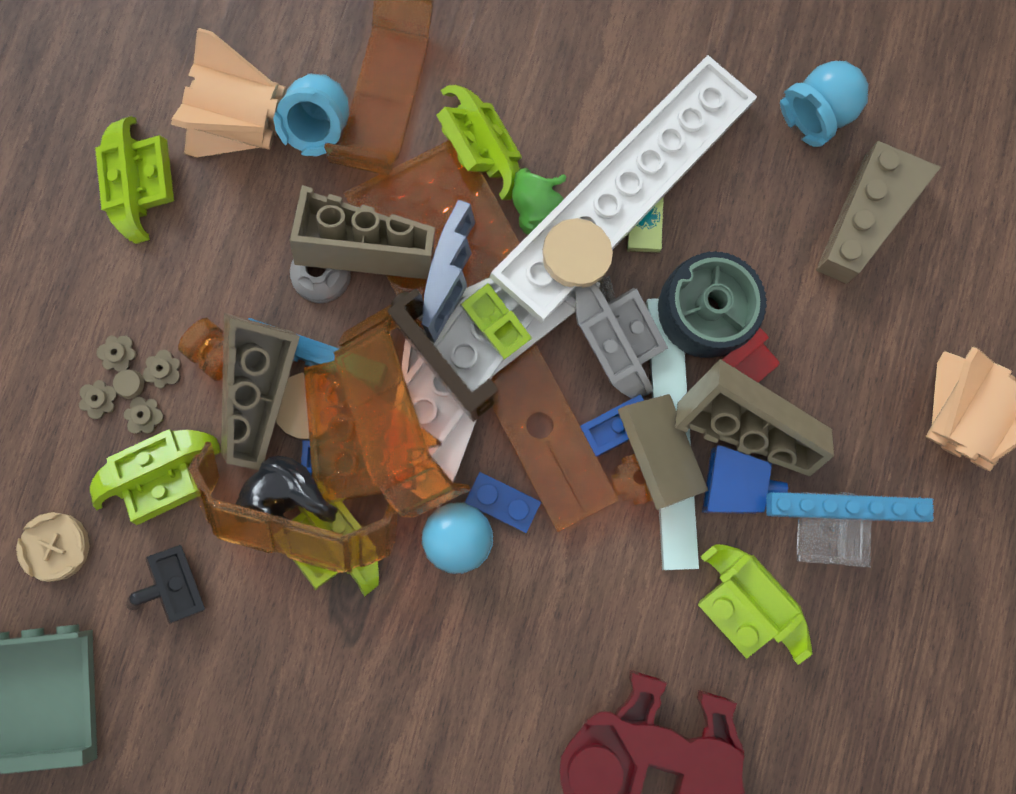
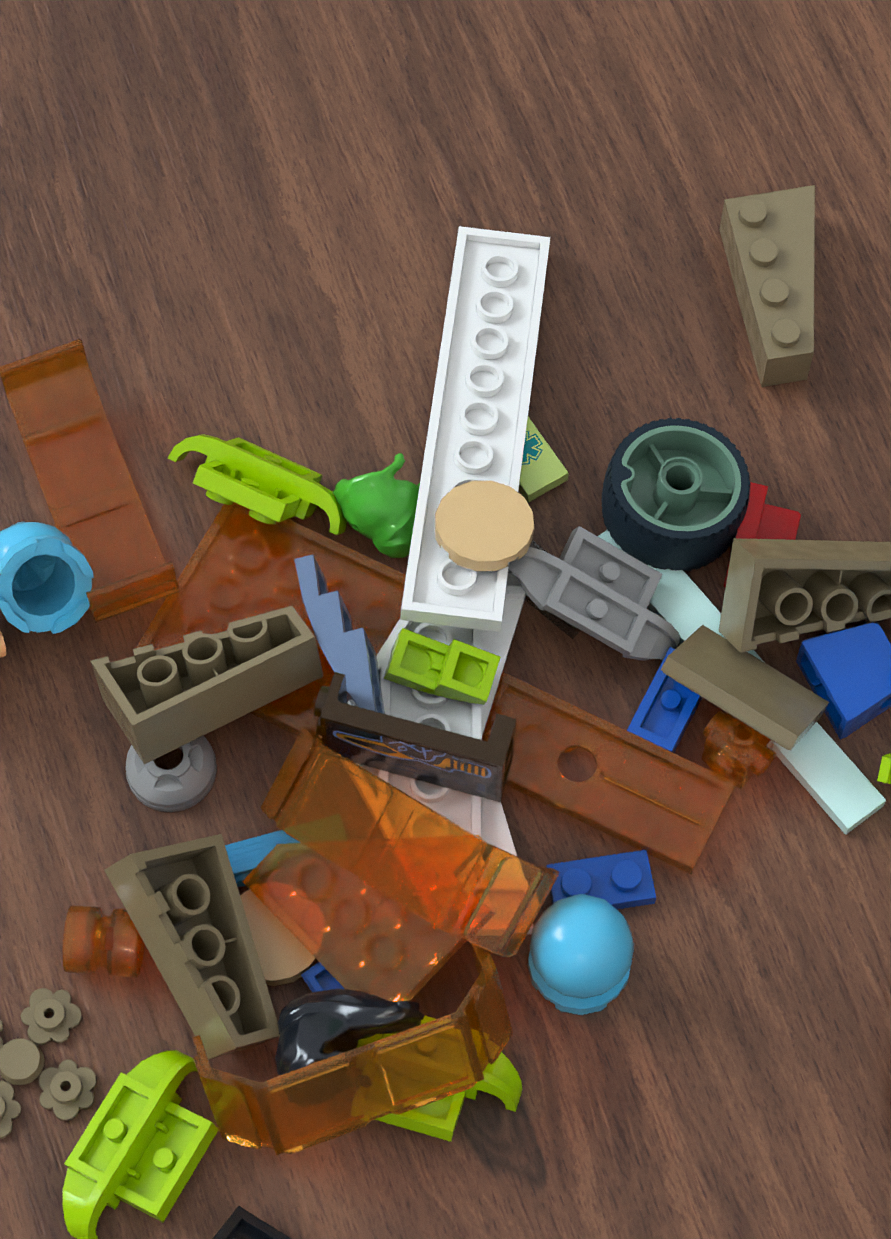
camera: 40 degrees left, 15 degrees down
(825, 101) = (633, 195): medium azure tile -> none

